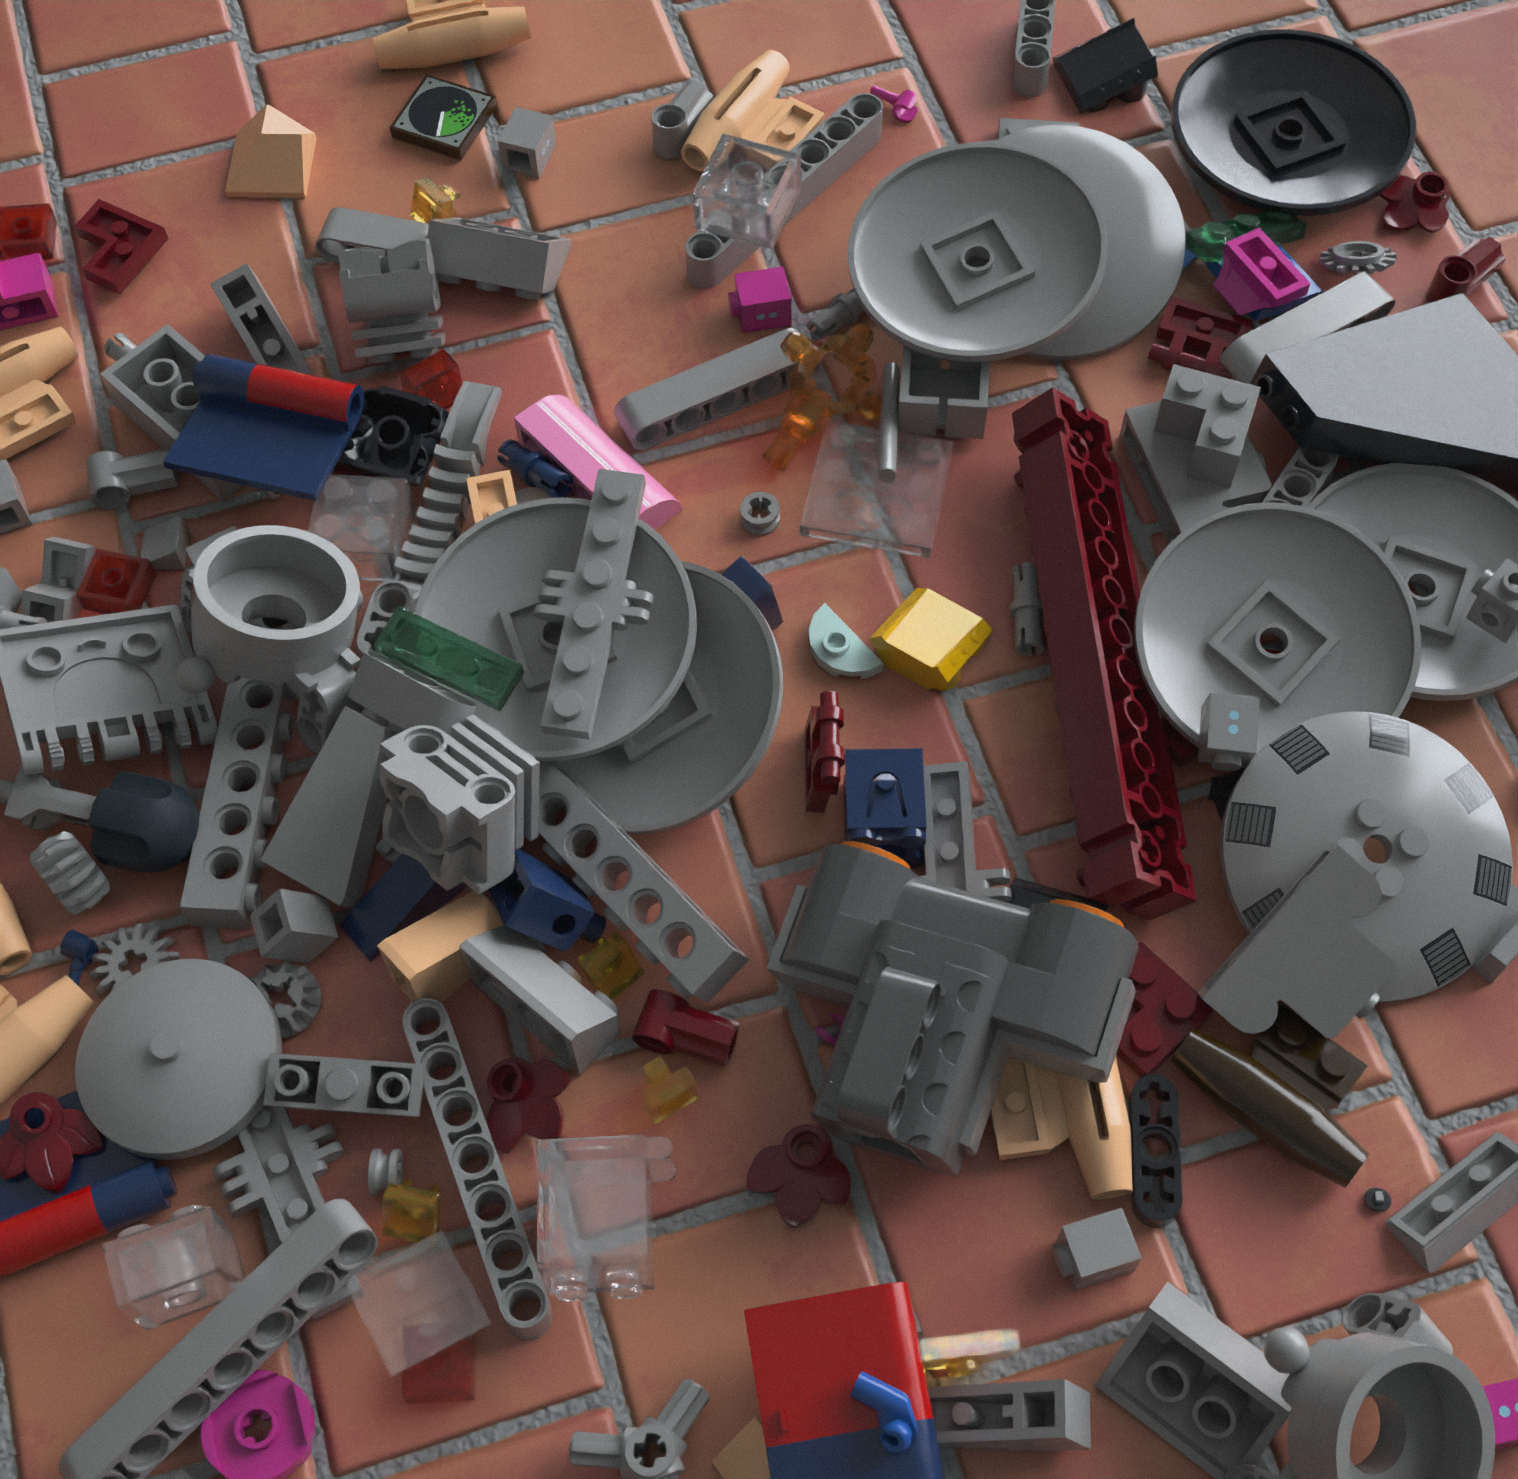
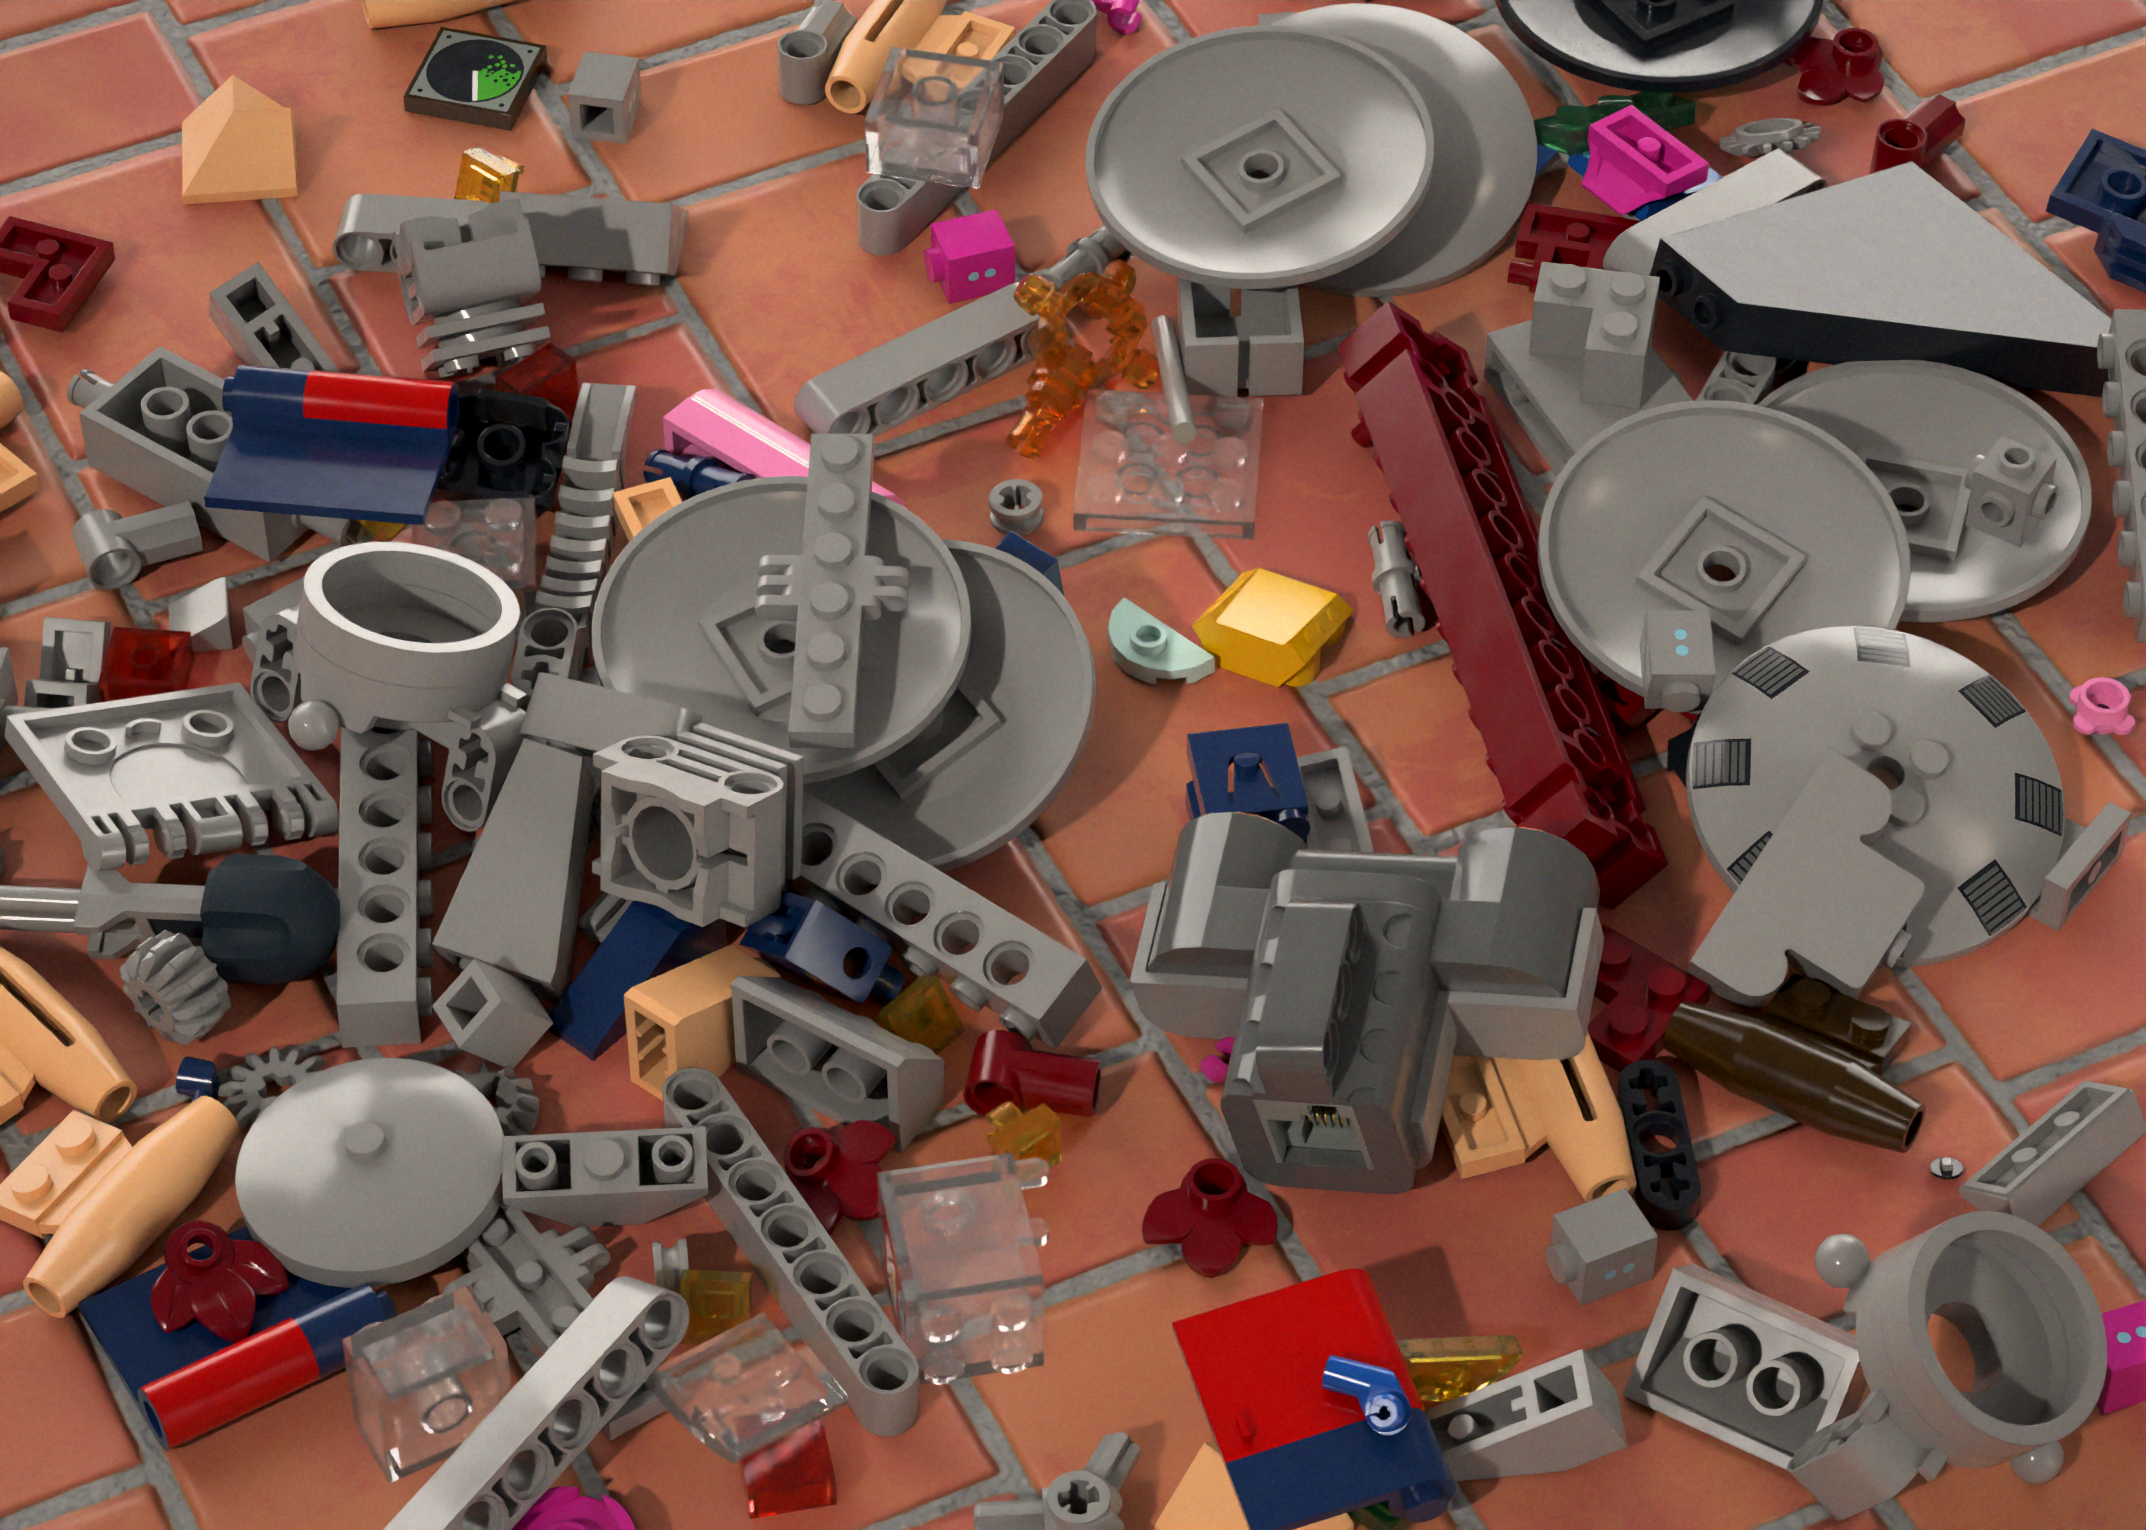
camera: 10 degrees left, 15 degrees down
(449, 658) = (654, 668): clear green plate -> none
(823, 751) = (1155, 754): dark red plate -> none

